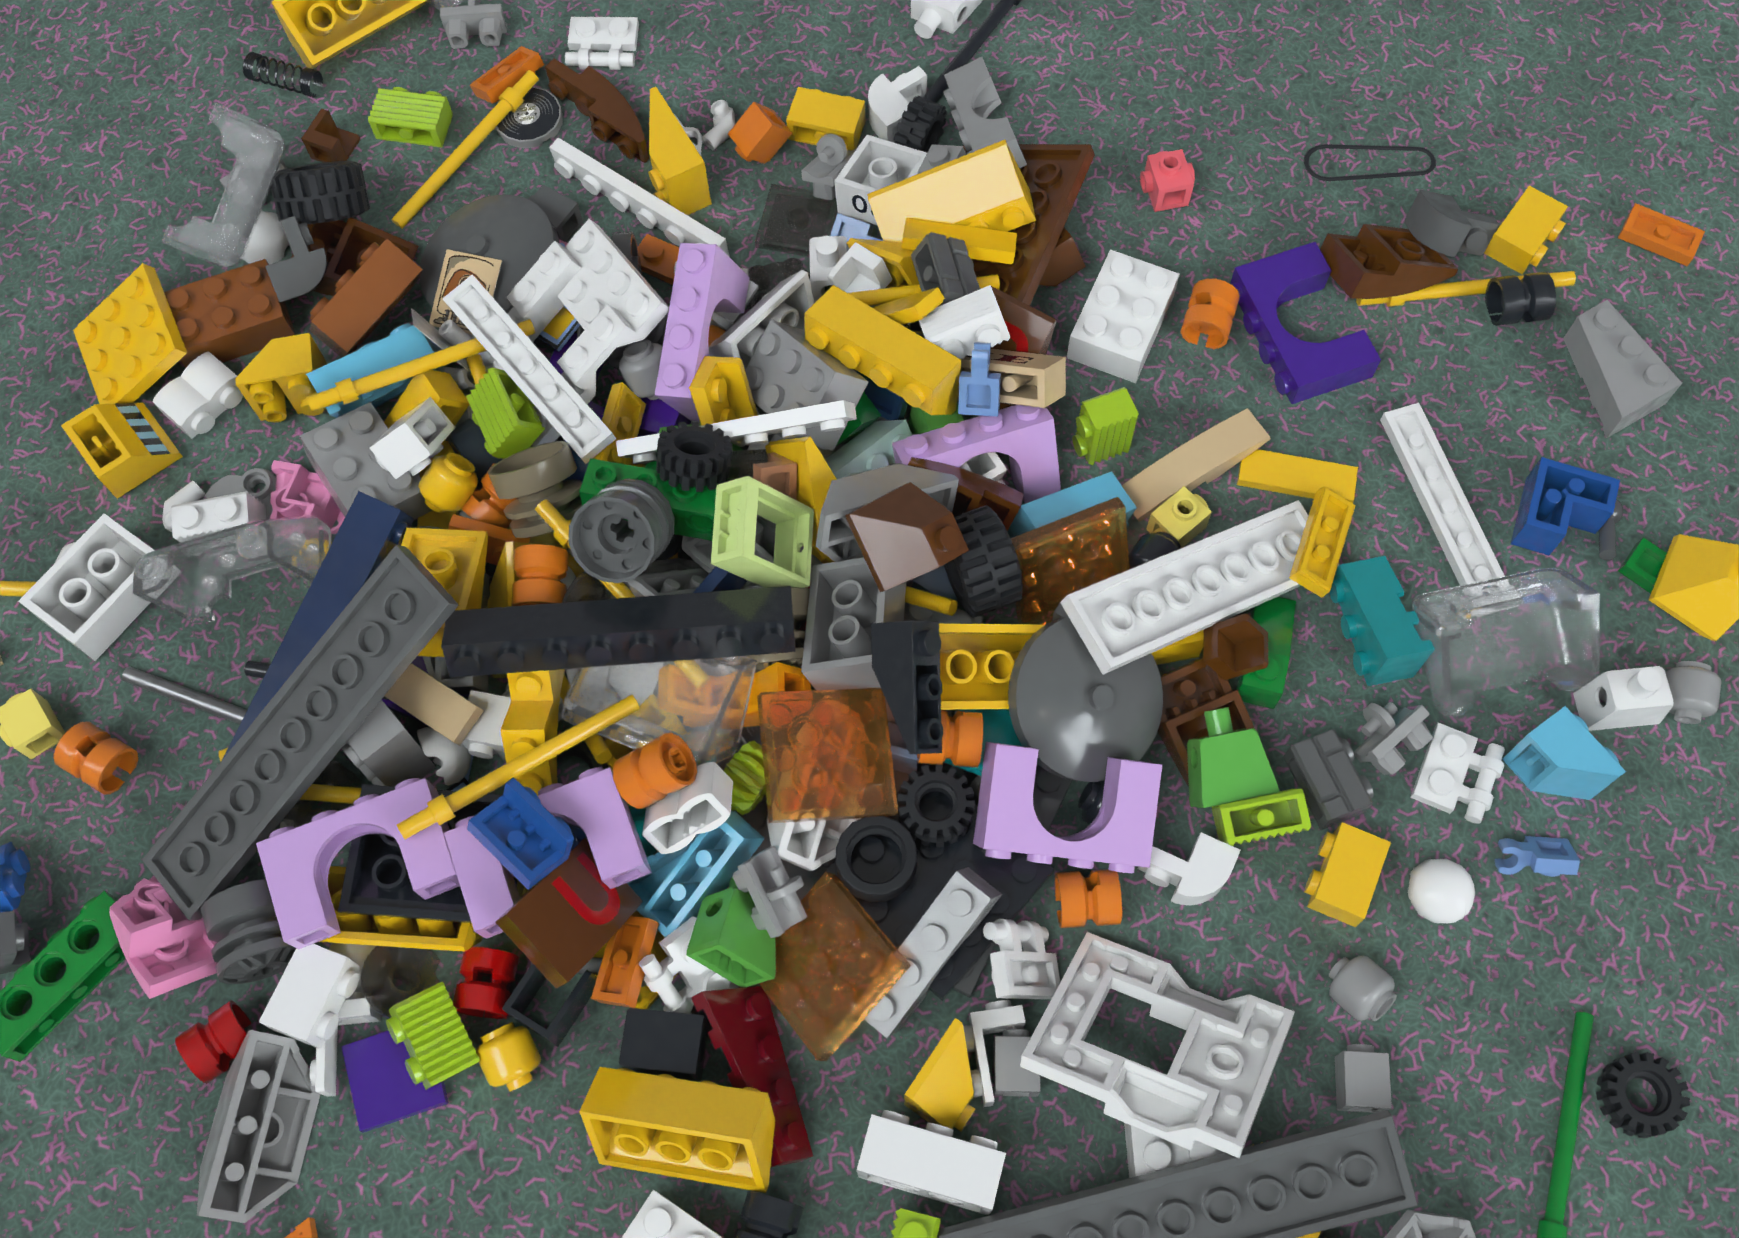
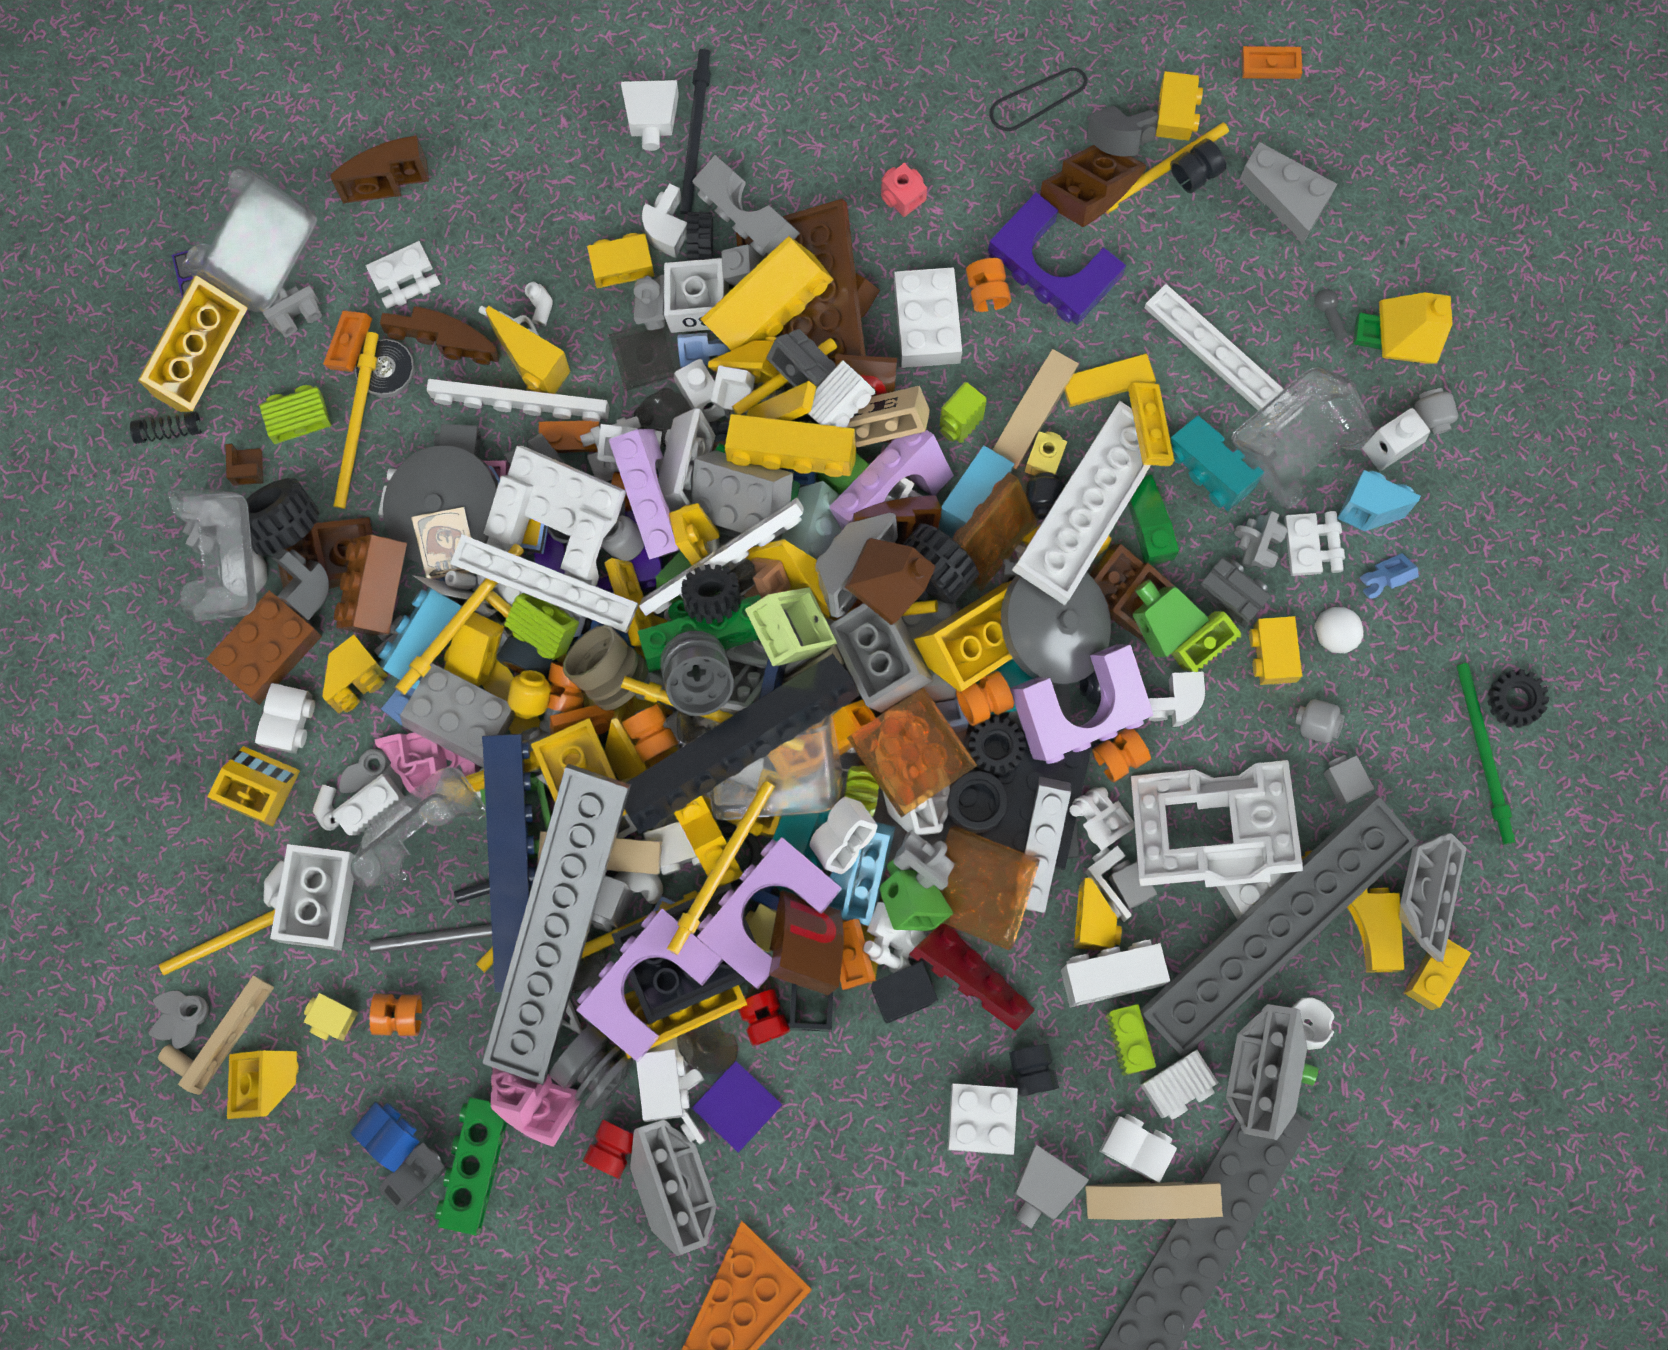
camera: 30 degrees left, 10 degrees up
(130, 339) = (205, 705): yellow plate -> none
(413, 440) = (490, 677): white brick -> none
(432, 1036) = (753, 1068): lime brick -> none
(508, 1056) = (806, 1055): yellow head -> none
(522, 834) = (755, 910): blue bracket -> none
(654, 771) = (811, 824): orange wheel -> none
(680, 1128) = (947, 1037): yellow slope -> none
(759, 134) = (578, 299): orange brick -> none
(909, 675) = (944, 673): black slope -> none
(979, 389) = (873, 439): medium blue plate -> none
(980, 242) = (807, 318): yellow tile -> none
(1235, 647) = (1134, 535): reddish brown panel -> none
(1559, 498) = (1291, 311): blue brick -> none

